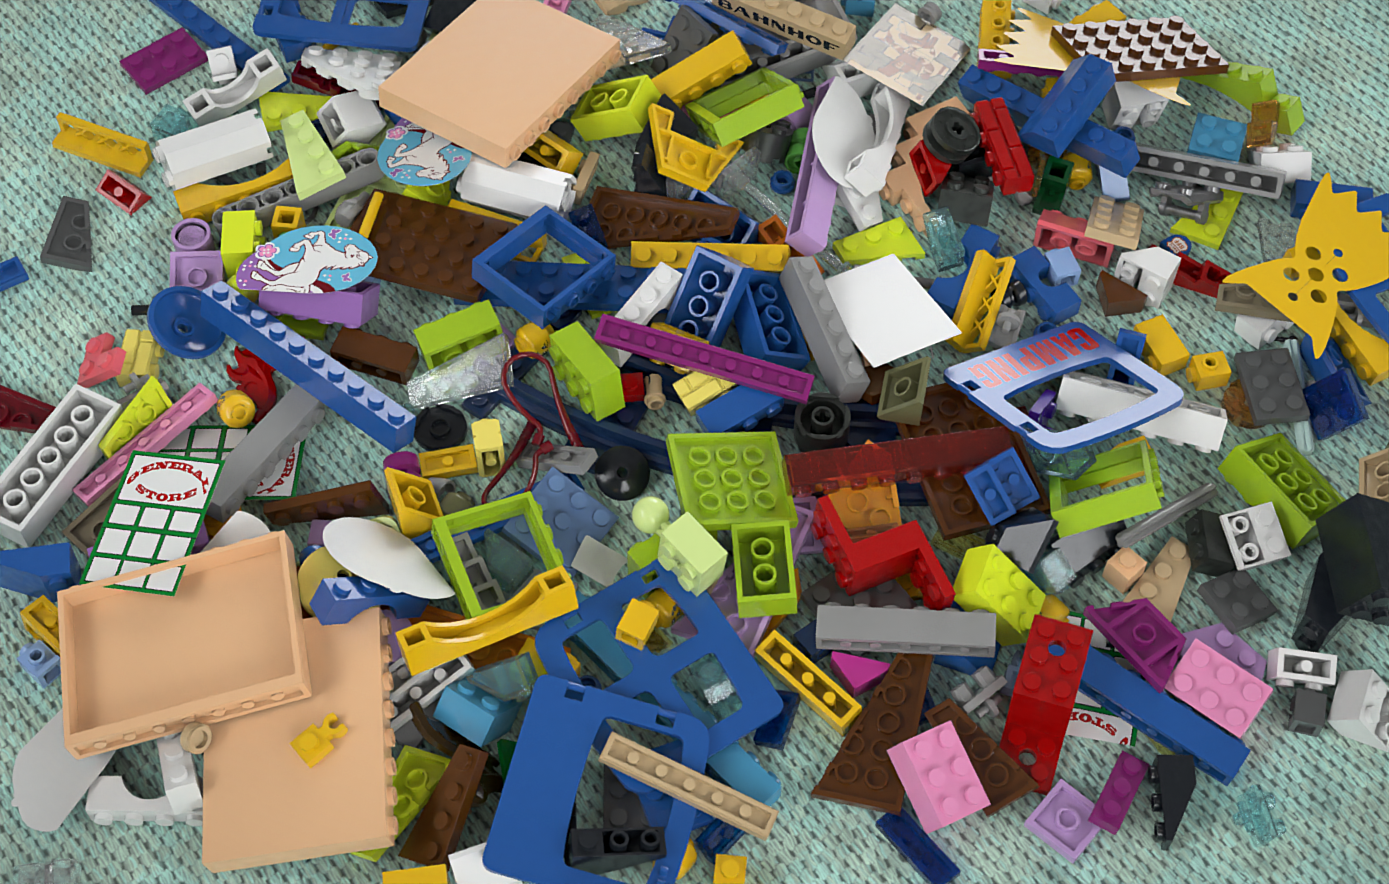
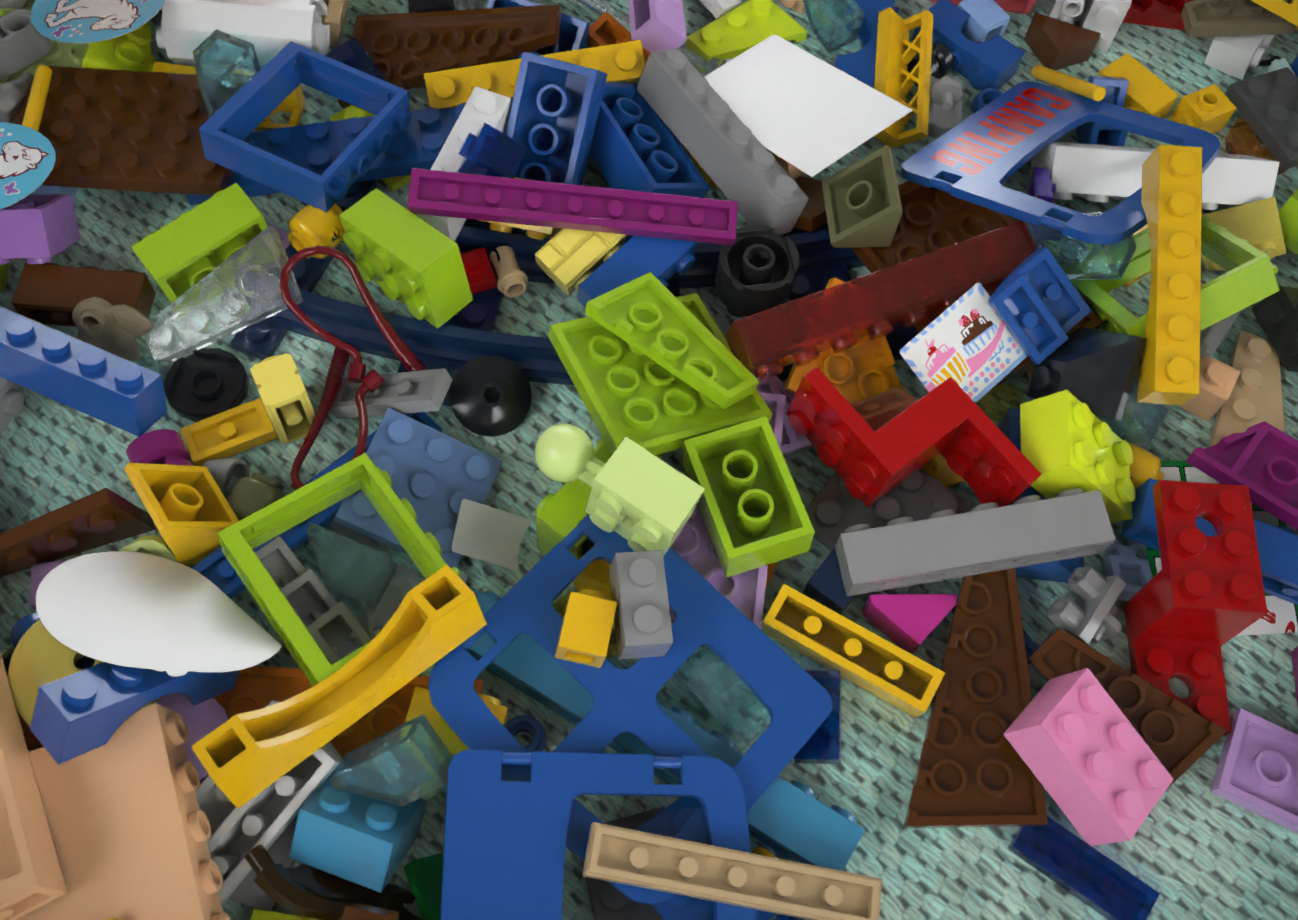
camera: 20 degrees left, 5 degrees up
(391, 380) = (115, 326): none -> dark tan plate
(497, 217) = (223, 67): none -> clear light blue slope
(657, 313) = (491, 153): none -> clear blue brick
(674, 617) = (642, 604): none -> light grey brick
(744, 456) = (670, 335): none -> lime wing
(941, 505) = (965, 344): none -> sticker
(1087, 483) = (1172, 332): none -> yellow arch
(1106, 329) = (1068, 82): none -> yellow bar
(1193, 467) = (1255, 222): none -> light yellow brick

